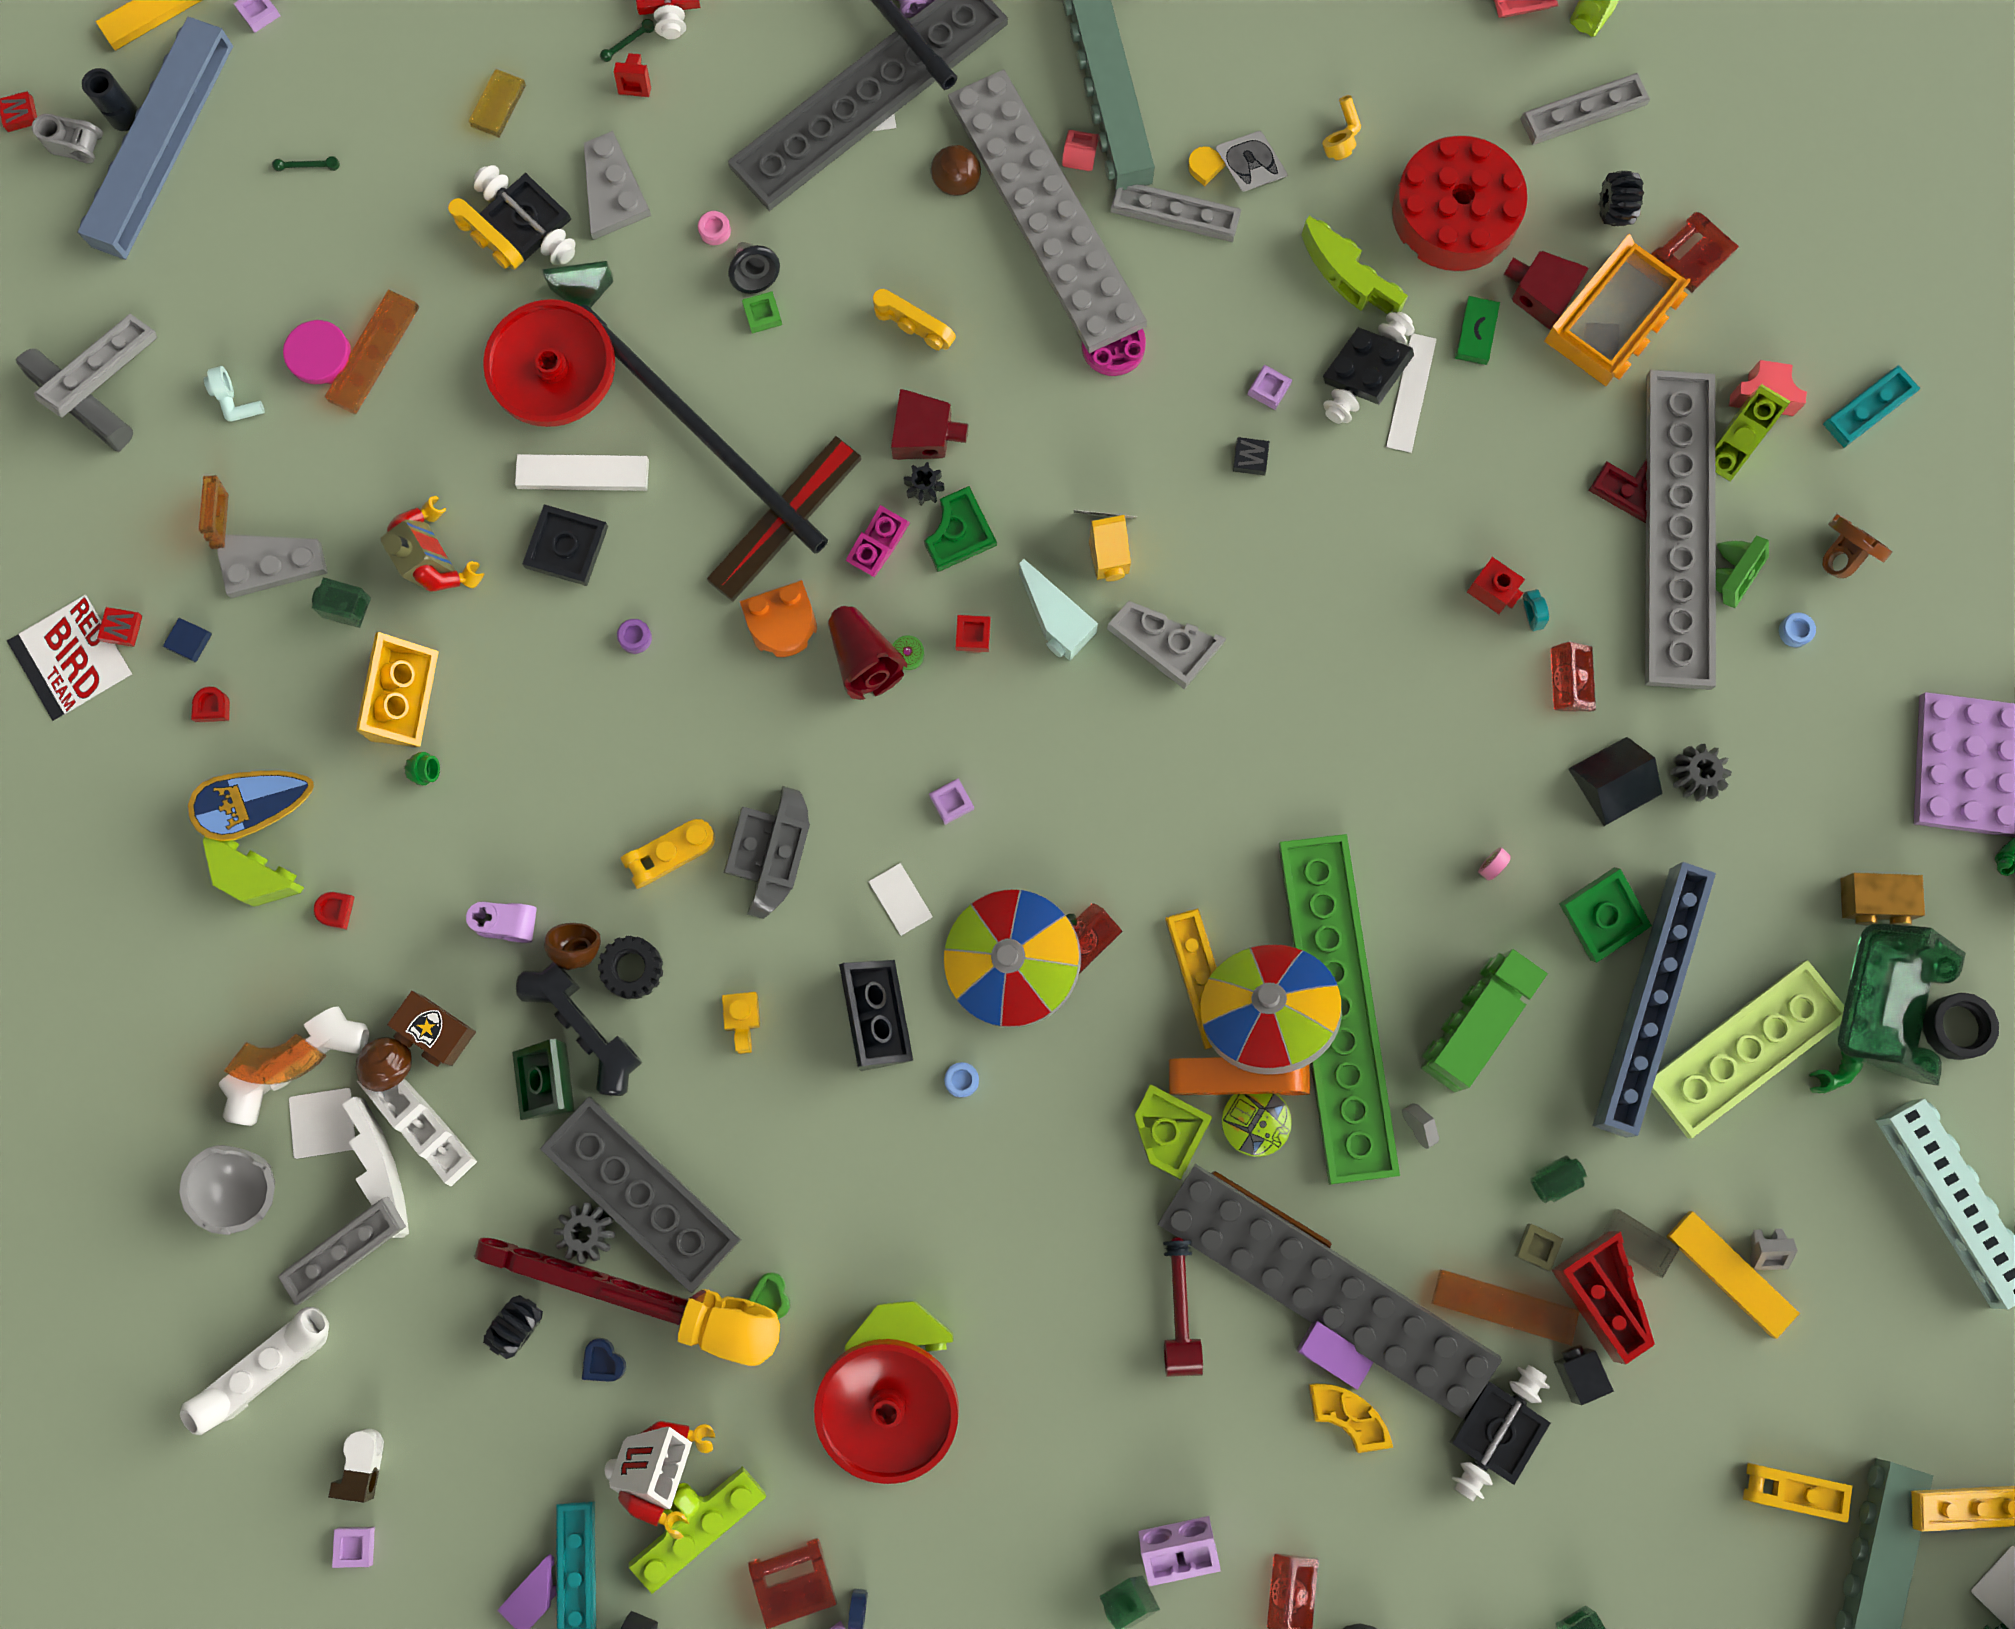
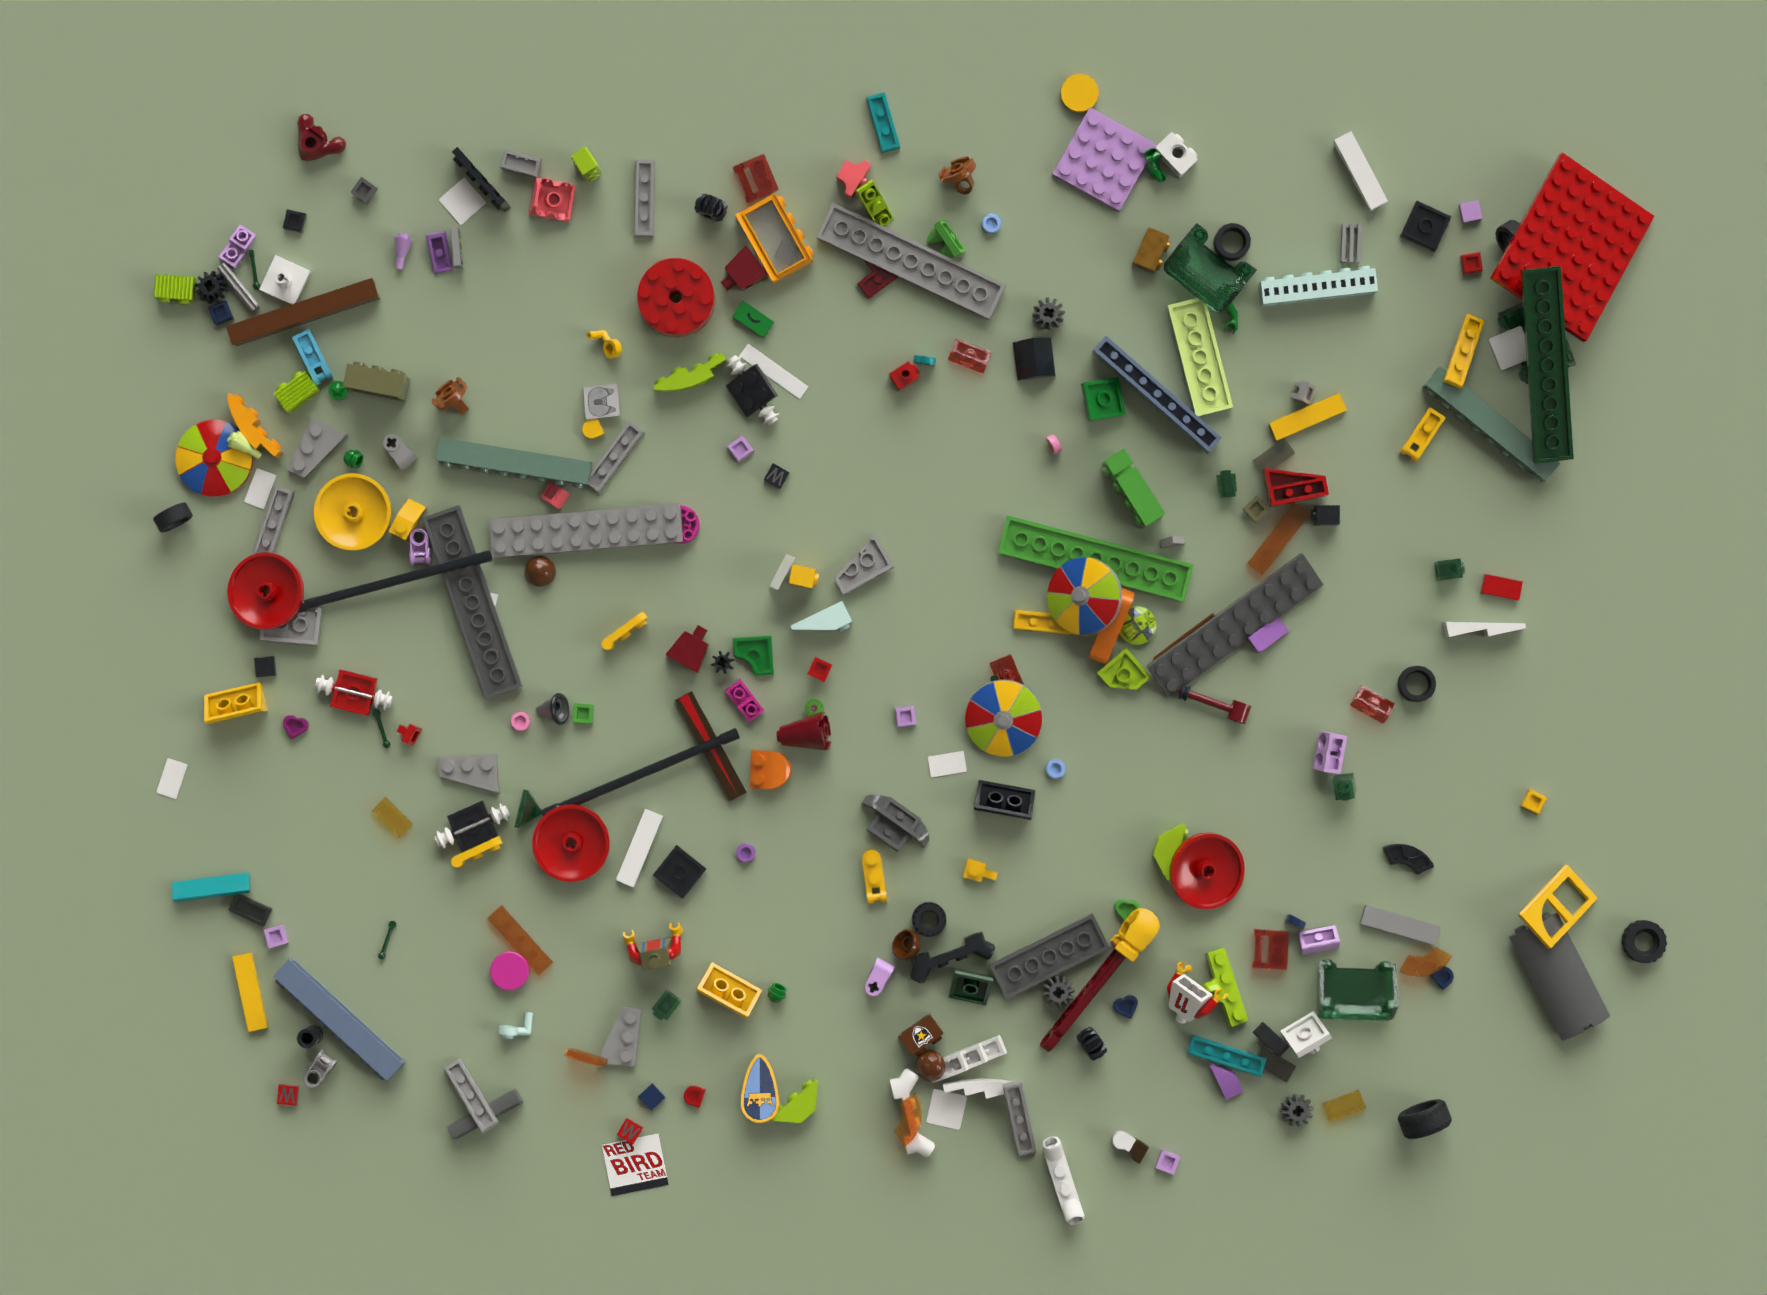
camera: 70 degrees left, 10 degrees up
(227, 1189) = (965, 1165): light grey cylinder -> none
(334, 909) = (834, 1065): red tile -> none
(1352, 1414) = (1298, 639): yellow tile -> none
(1500, 1432) = (1337, 569): black plate -> none

